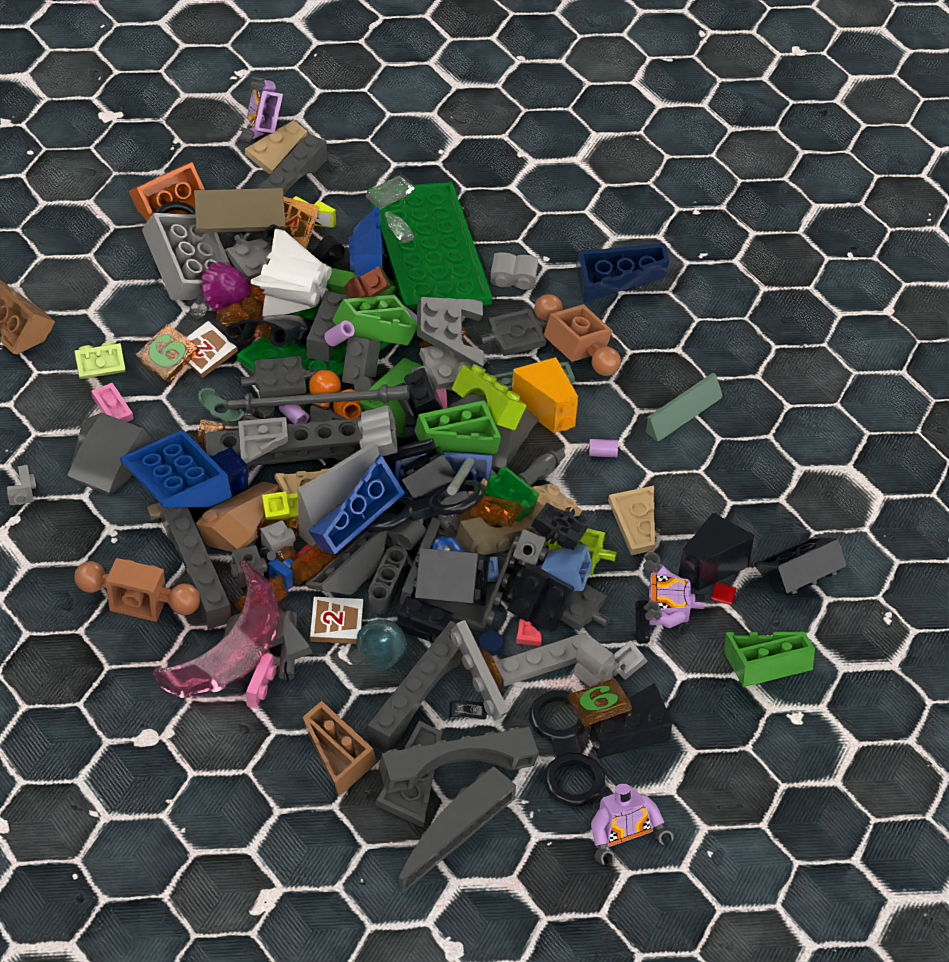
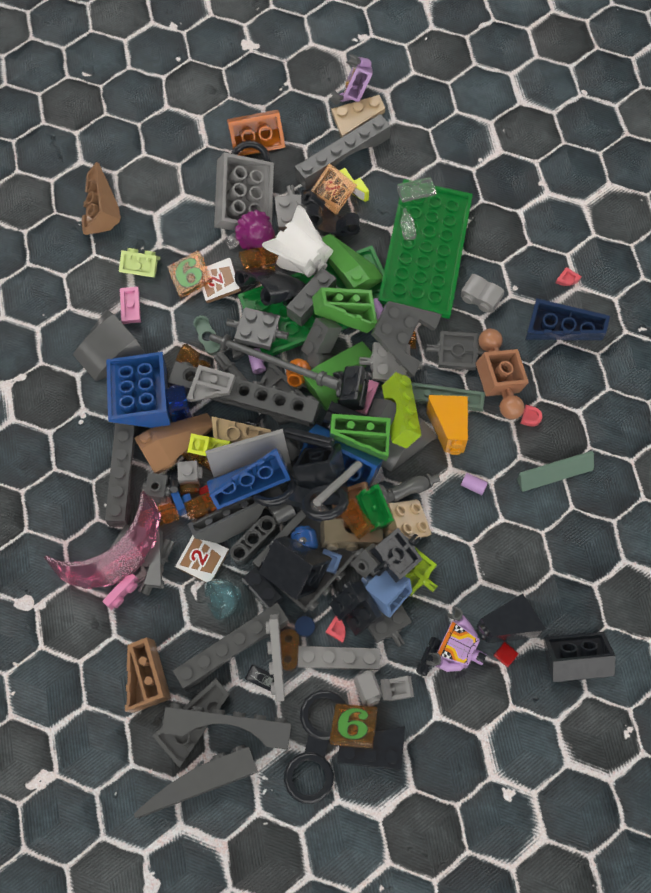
camera: 30 degrees right, 20 degrees up
(22, 493) = (37, 354): light grey bracket -> none
(136, 589) = (67, 477): nougat brick -> none
(238, 209) = (293, 168): dark tan tile -> none
(324, 382) = (286, 348): orange piece -> none
(339, 333) = (309, 313): lavender piece -> none
(366, 245) = (373, 237): blue wedge -> none
(368, 285) = (350, 278): copper brick -> none
(379, 427) = (296, 416): light grey brick -> none
(599, 231) = (568, 278): none -> coral tile
(625, 818) = (325, 836): lavender torso -> none
(630, 369) = (531, 416): none -> coral tile
(635, 518) = (468, 559): tan wing -> none
(768, 657) = (509, 735): bright green wedge -> none

